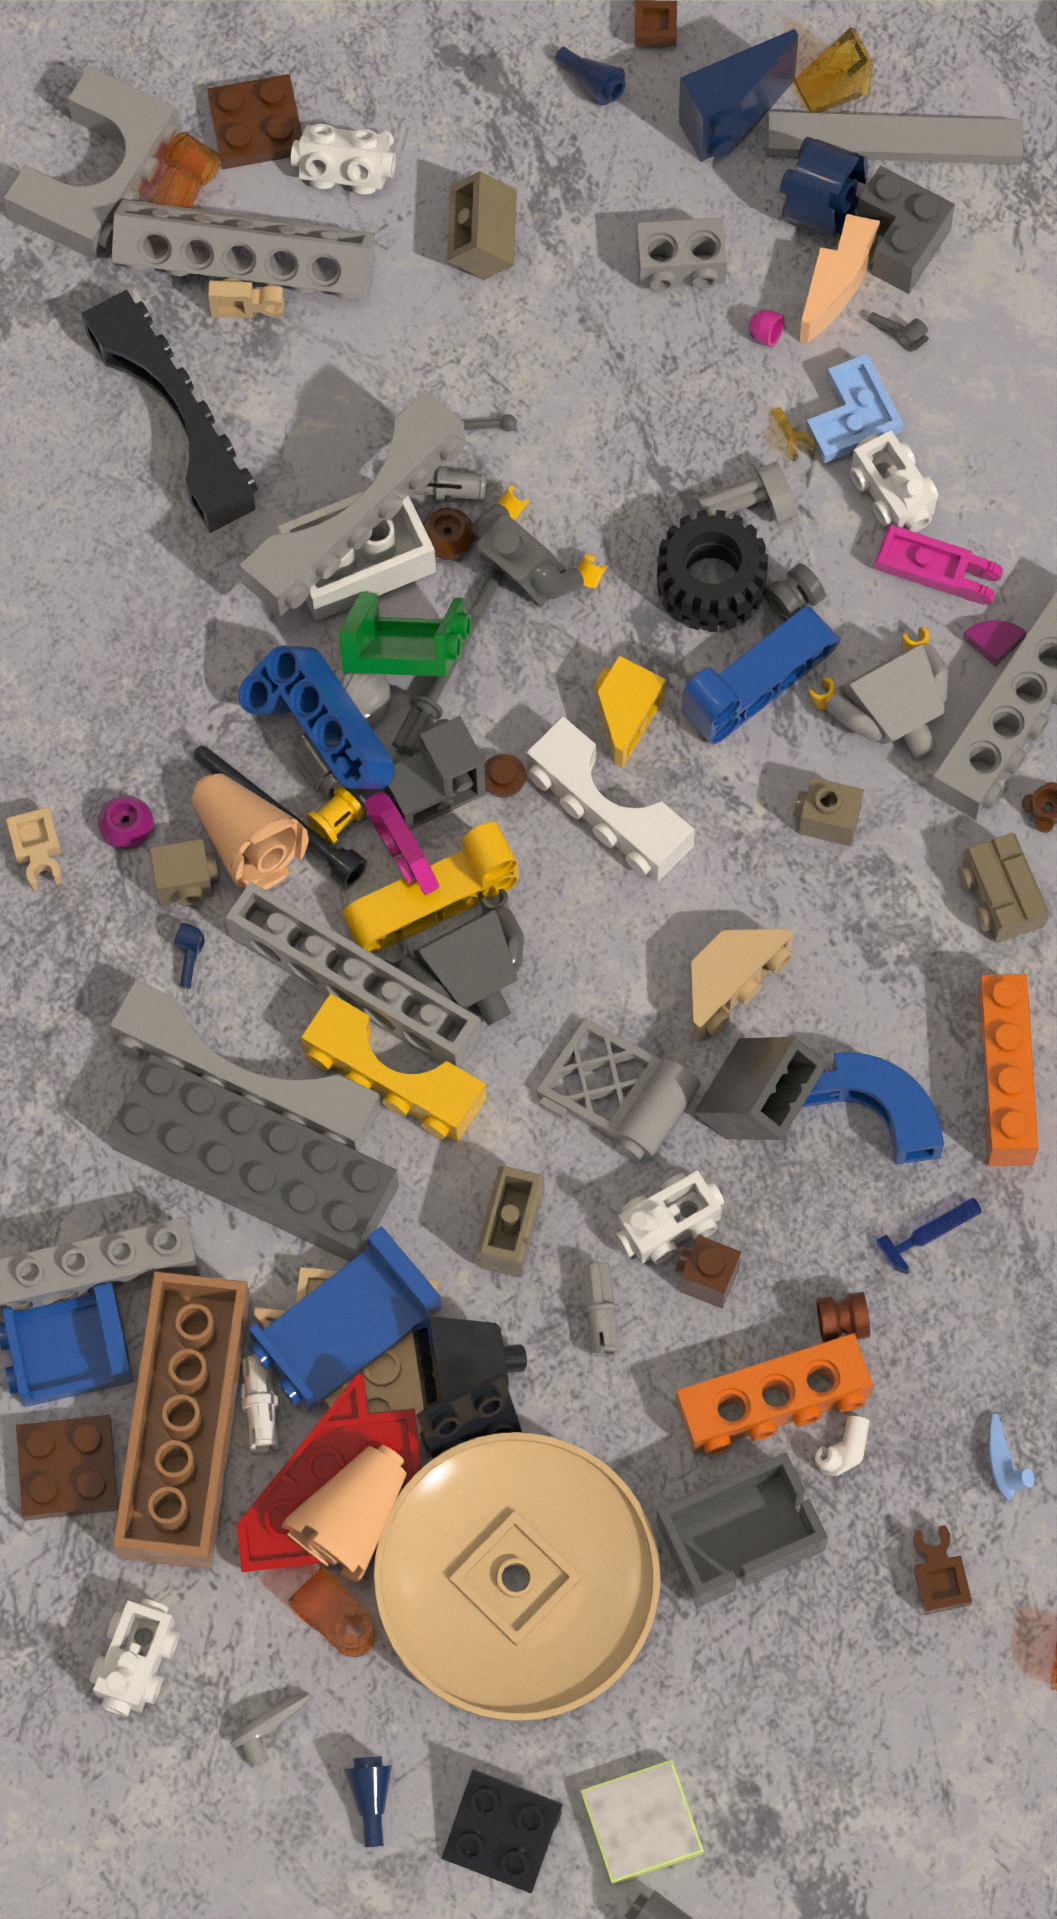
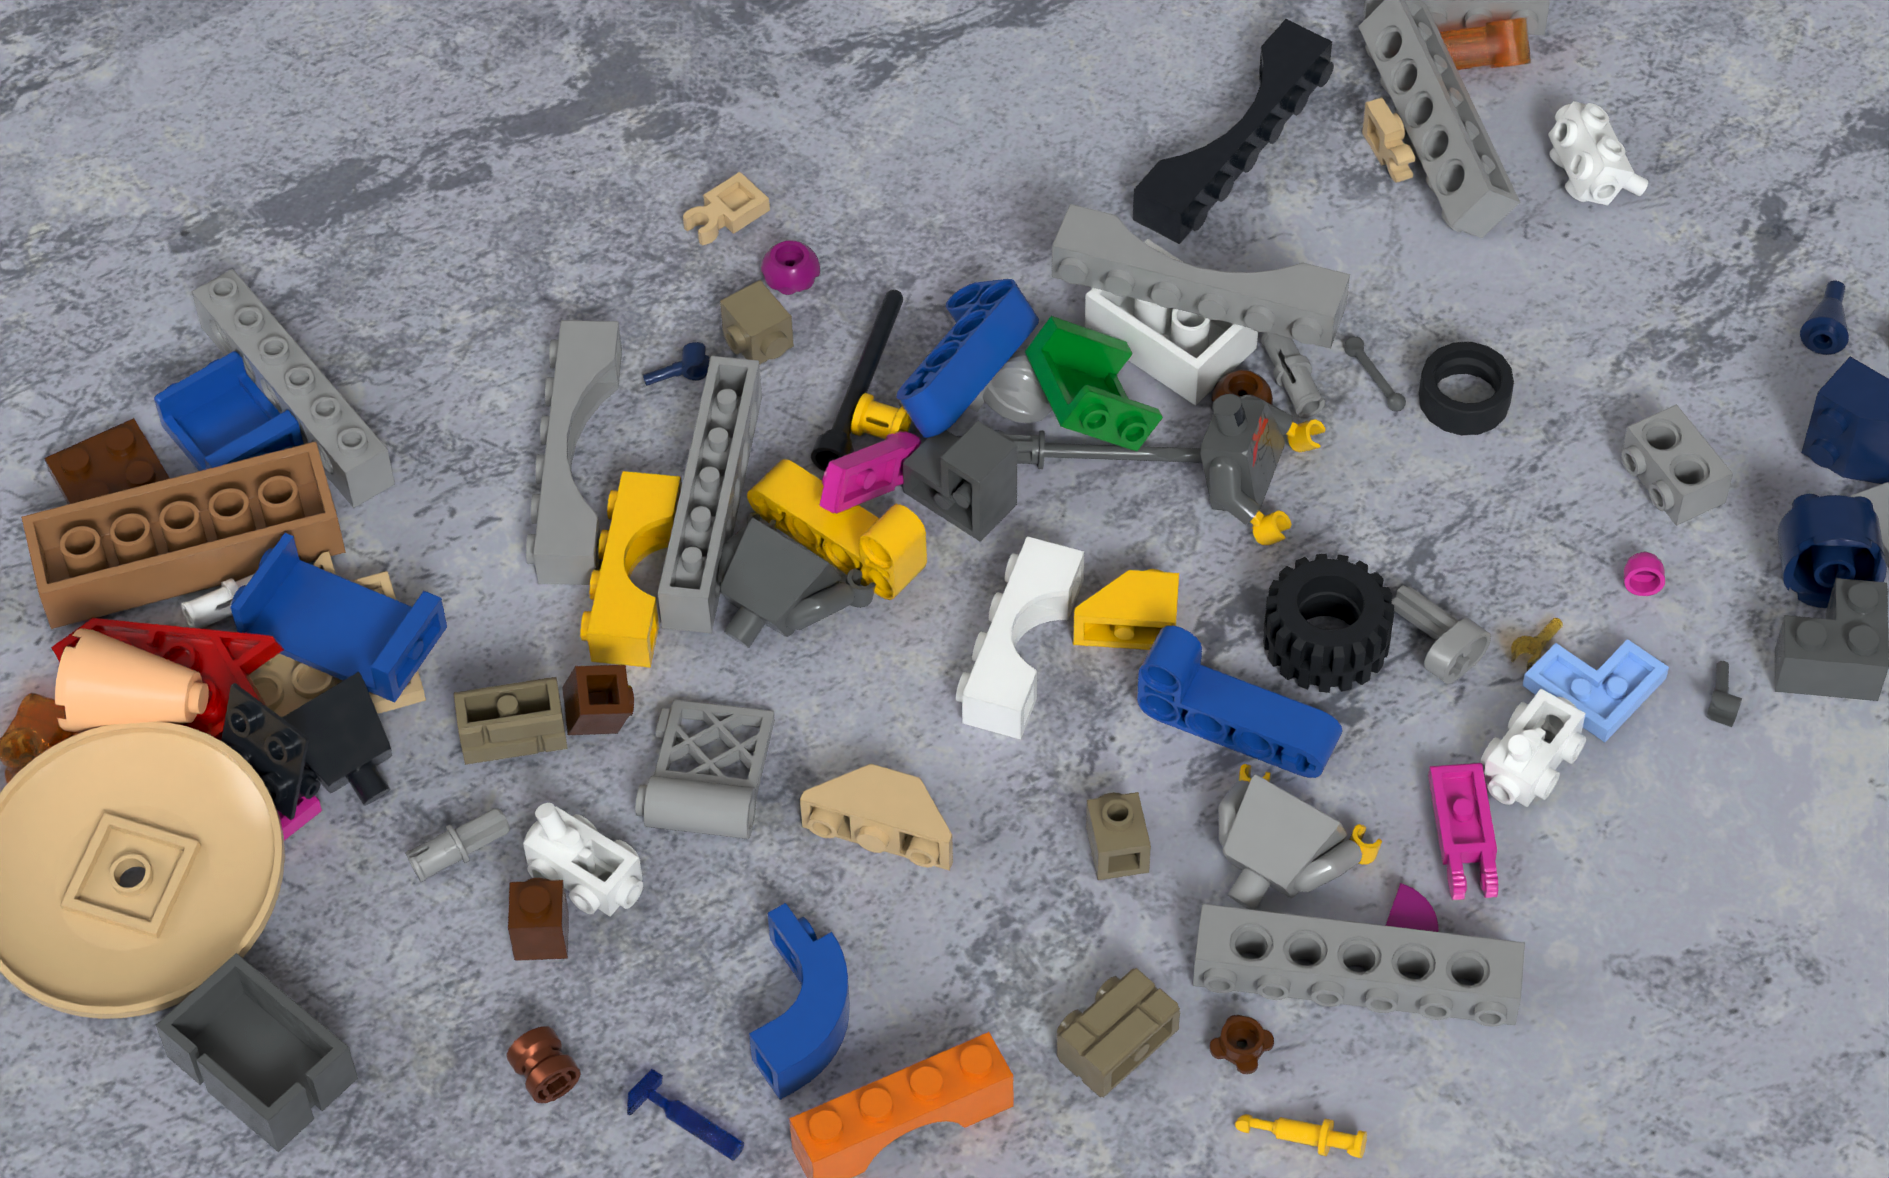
camera: 65 degrees right, 15 degrees down
(248, 831) = (817, 355): light nougat cone -> none
(253, 1159) = (482, 490): dark grey brick -> none
(254, 120) = (1590, 73): reddish brown plate -> none
(482, 225) = (1590, 286): dark tan brick -> none
(504, 775) = (1001, 539): reddish brown plate -> none
(523, 1142) = (597, 699): none -> reddish brown brick
(527, 335) = (1473, 360): none -> black tyre
(760, 1088) = (751, 873): dark grey brick -> none
(794, 592) = (1352, 708): dark grey wheel -> none
(836, 1359) = (387, 971): orange brick -> none
(838, 275) = (1735, 607): light nougat slope -> none
(847, 1453) = (394, 1130): white arm -> none

